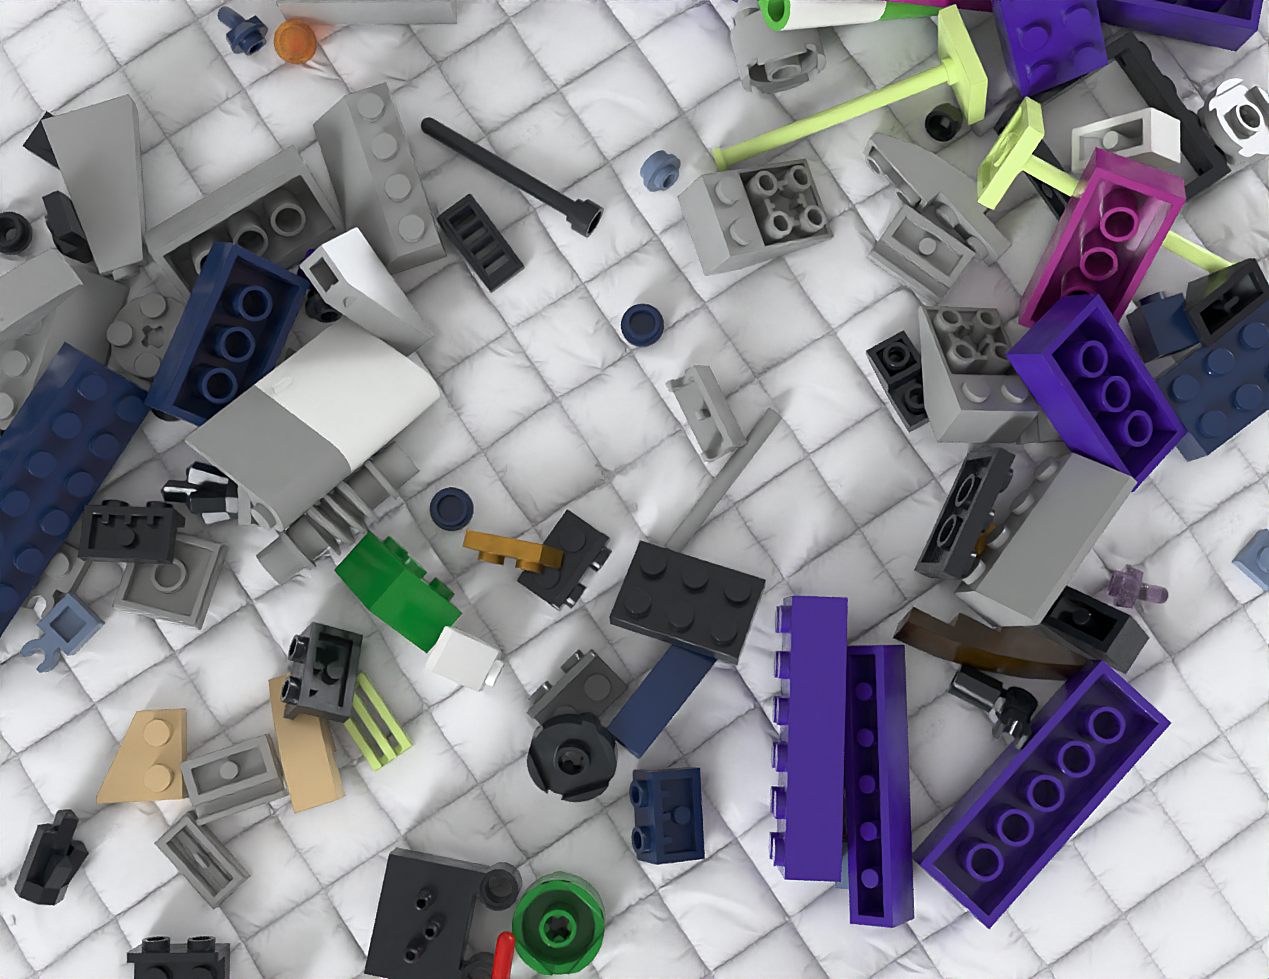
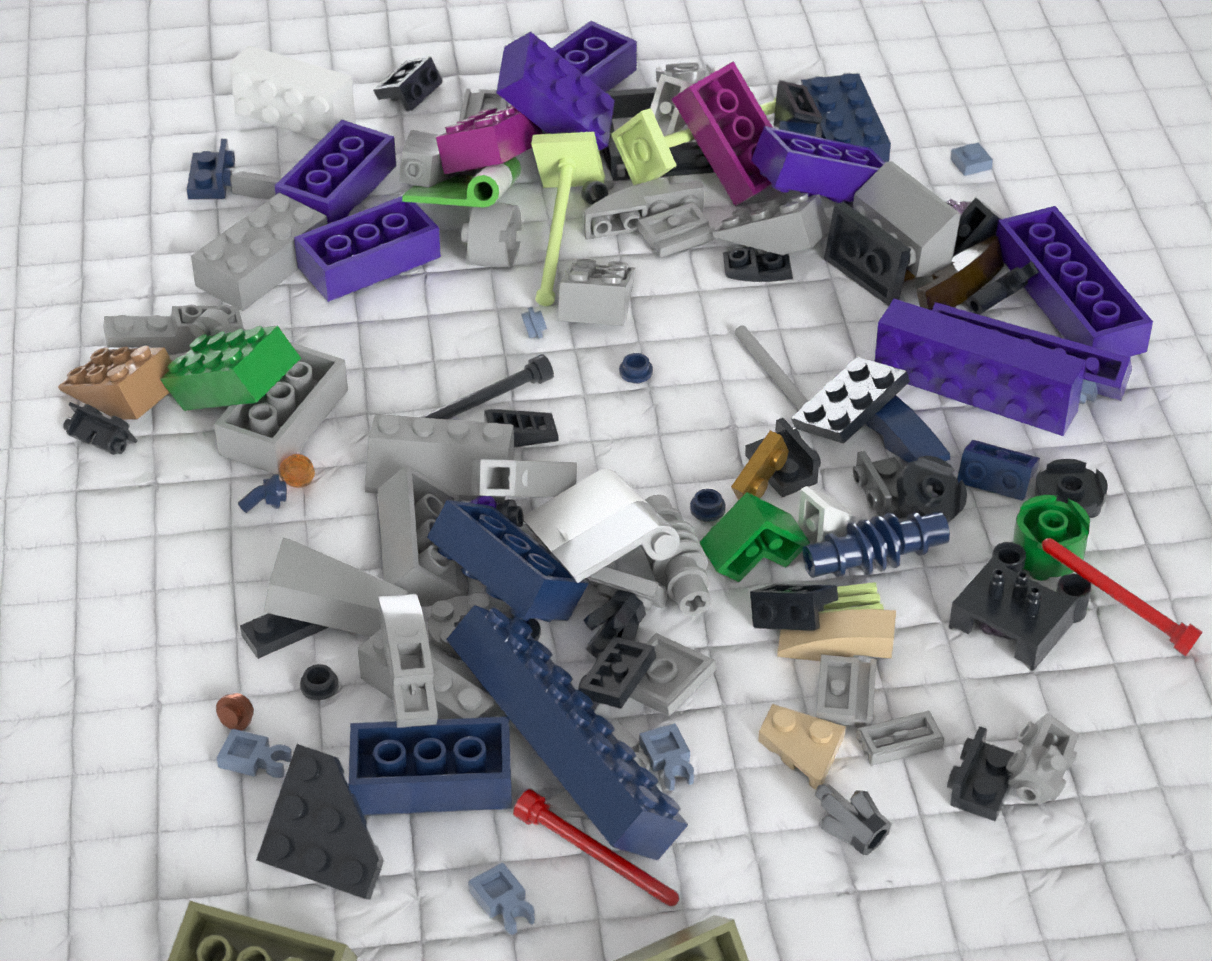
camera: 65 degrees left, 40 degrees down
(66, 227) = (353, 618): black slope -> none
(454, 729) = (875, 542): none -> dark blue piece
(663, 937) = (1088, 486): none -> black plate
(707, 412) = (721, 352): light grey hinge -> none

